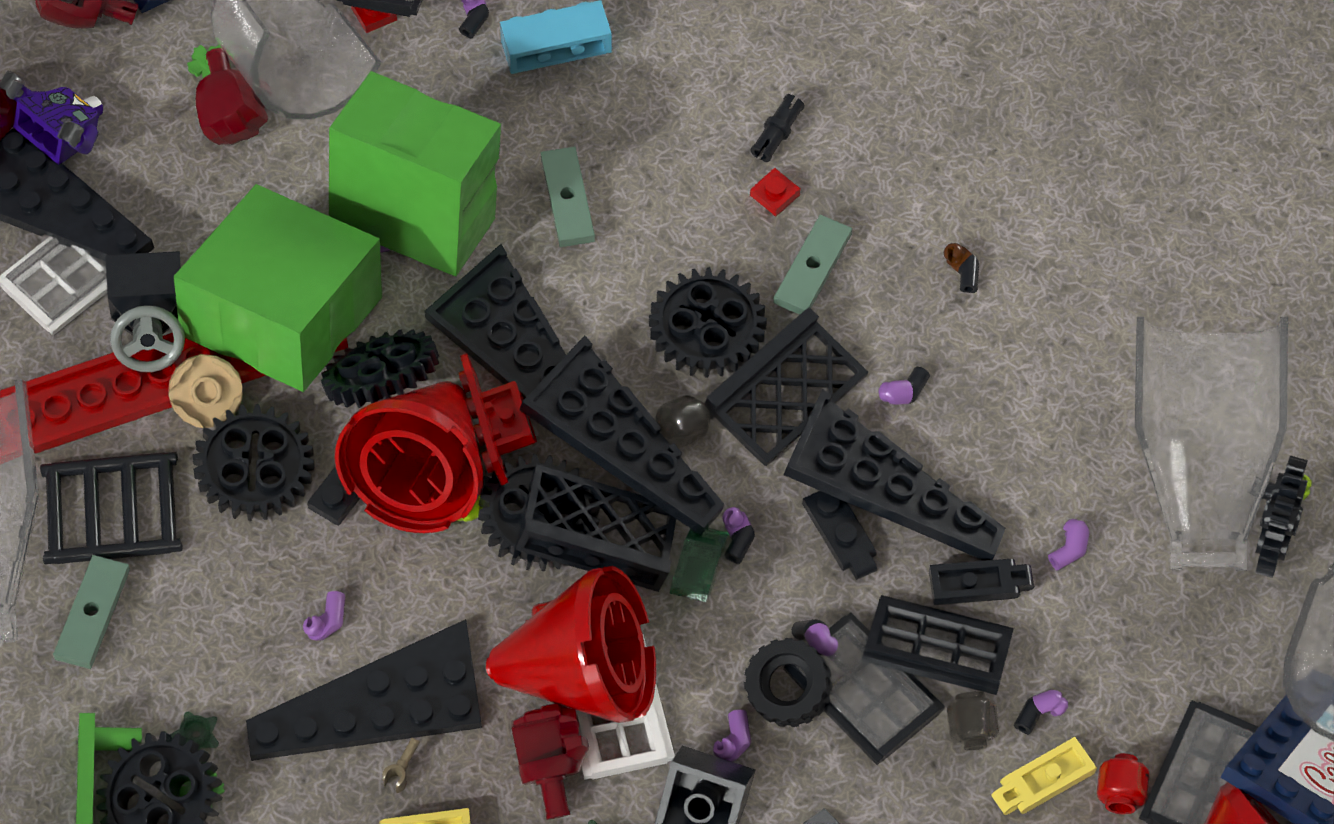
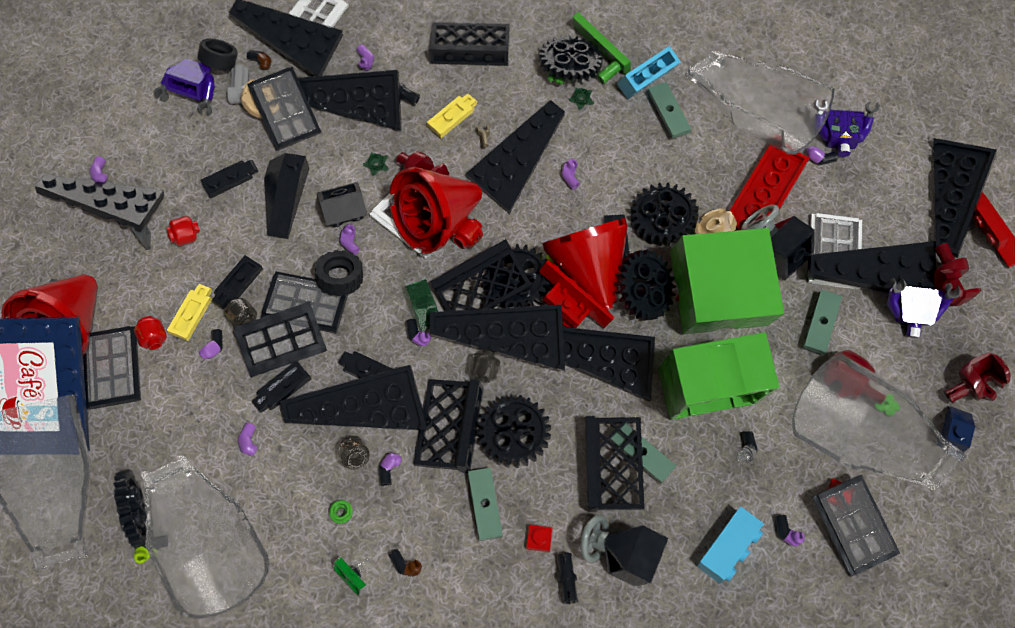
camera: 145 degrees right, 5 degrees up
(67, 681) = (648, 72): none -> medium azure brick
(89, 469) = (717, 180): black bar -> none
(205, 182) = (825, 311): none -> sand green tile
(637, 223) = (594, 468): none -> black fence
(684, 84) = (629, 553): none -> black piece
(816, 635) = (337, 300): medium lavender arm -> none
(939, 424) = (353, 452): none -> clear smoke head
(946, 780) = (236, 281): none -> black hinge
(1007, 367) = (341, 504): none -> bright green plate
(1039, 294) = (352, 575): none -> green piece

